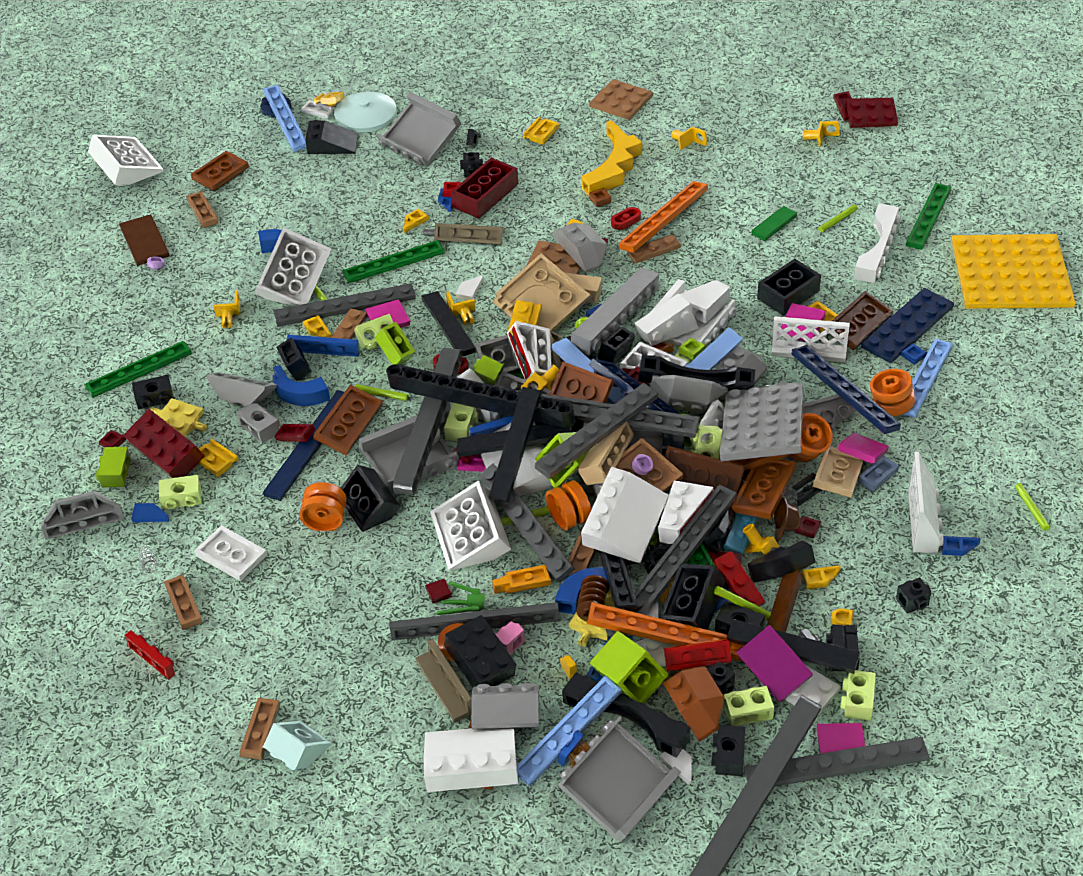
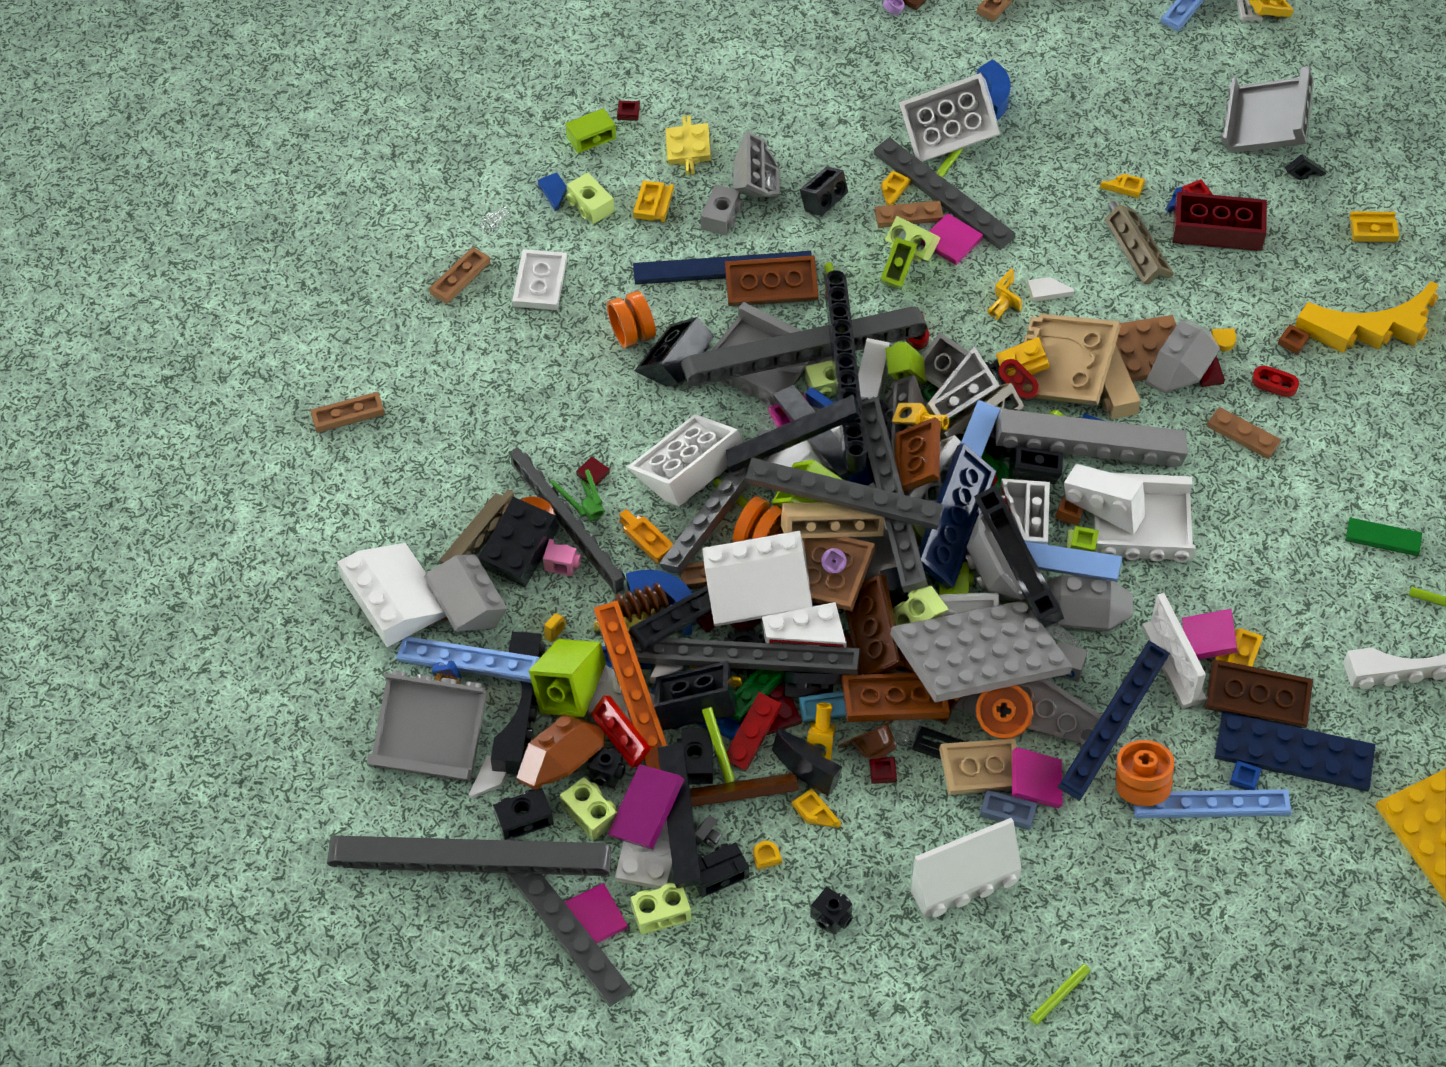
camera: 60 degrees right, 10 degrees up
(80, 513) = (512, 138): light grey wedge -> none
(137, 369) = (736, 76): green tile -> none
(150, 654) = (383, 284): red plate -> none
(152, 392) = (707, 104): black brick -> none
(163, 445) = (635, 152): dark red brick -> none
(228, 311) = (862, 101): yellow bracket -> none
(295, 432) = (726, 246): dark red plate -> none
(295, 744) = (343, 448): light aqua slope -> none
(300, 393) = (786, 227): blue arch -> none
(327, 345) = (865, 206): blue tile -> none
(329, 138) = (1200, 41): black slope -> none
(365, 111) = (1277, 47): light aqua dish -> none
(393, 261) = (1043, 201): green tile -> none
(448, 323) = (972, 296): black tile -> none
(470, 161) = (1254, 186): black brick -> none
(543, 320) = (1019, 379): none -> red plate
(663, 216) = (1302, 416): orange plate -> none
(707, 299) = (1175, 519): white slope -> none
(788, 285) = (1263, 595): black brick -> none
(958, 545) = (946, 934): blue tile -> none

